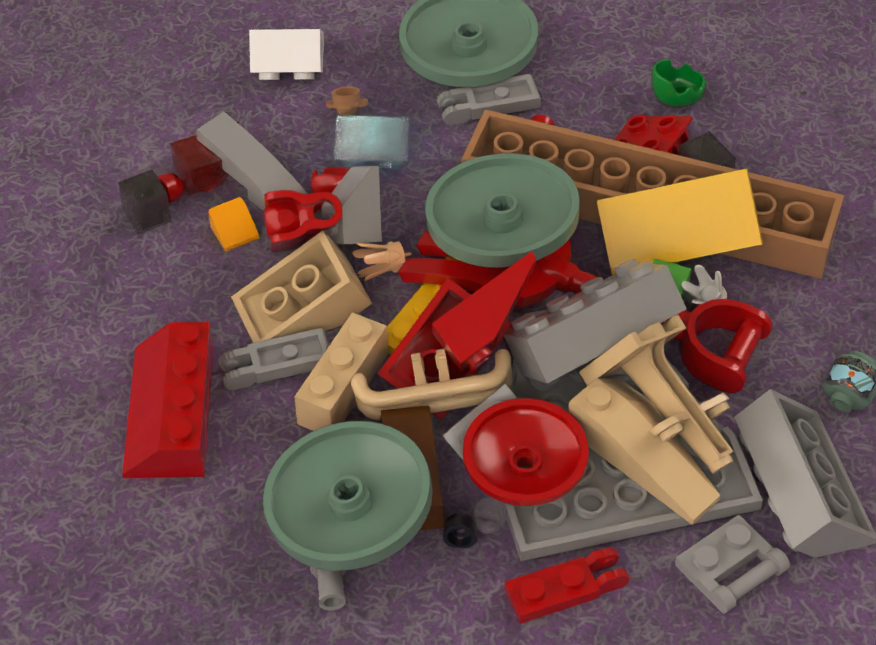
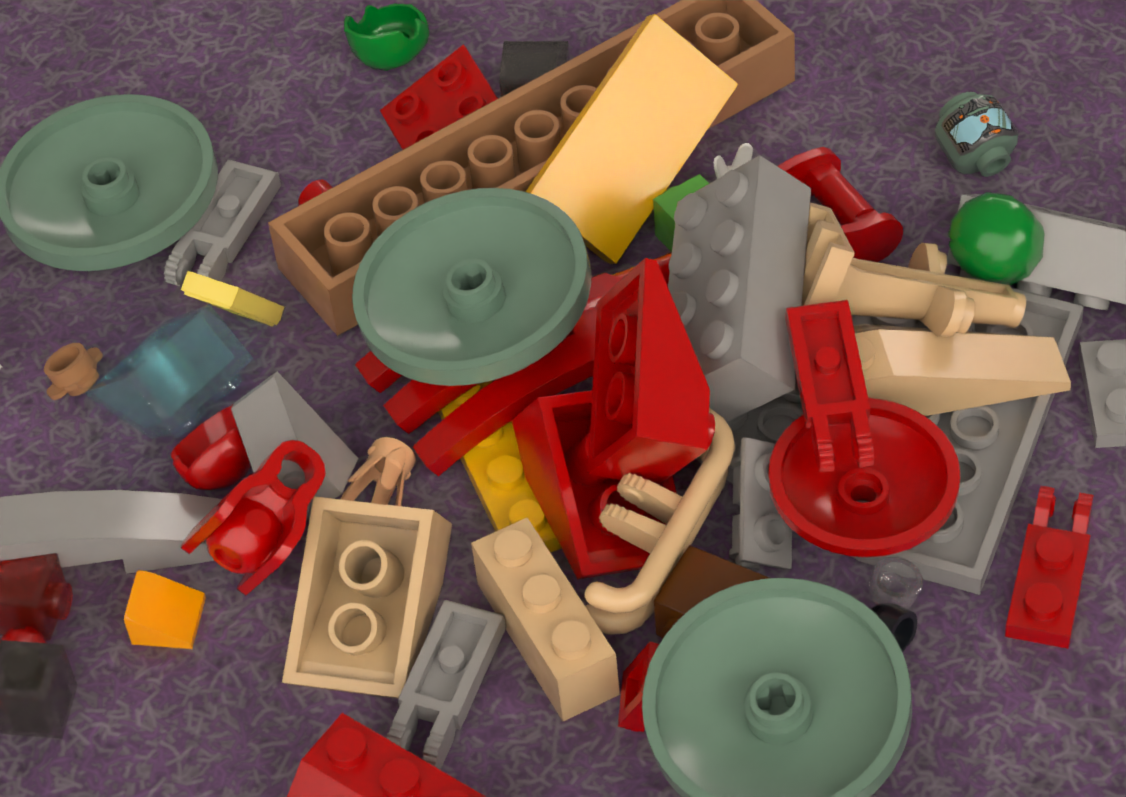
camera: 50 degrees left, 0 degrees up
(433, 129) = (232, 299): none -> light yellow tile
(559, 393) = (830, 378): none -> red hinge
(755, 424) = (996, 238): none -> green hair

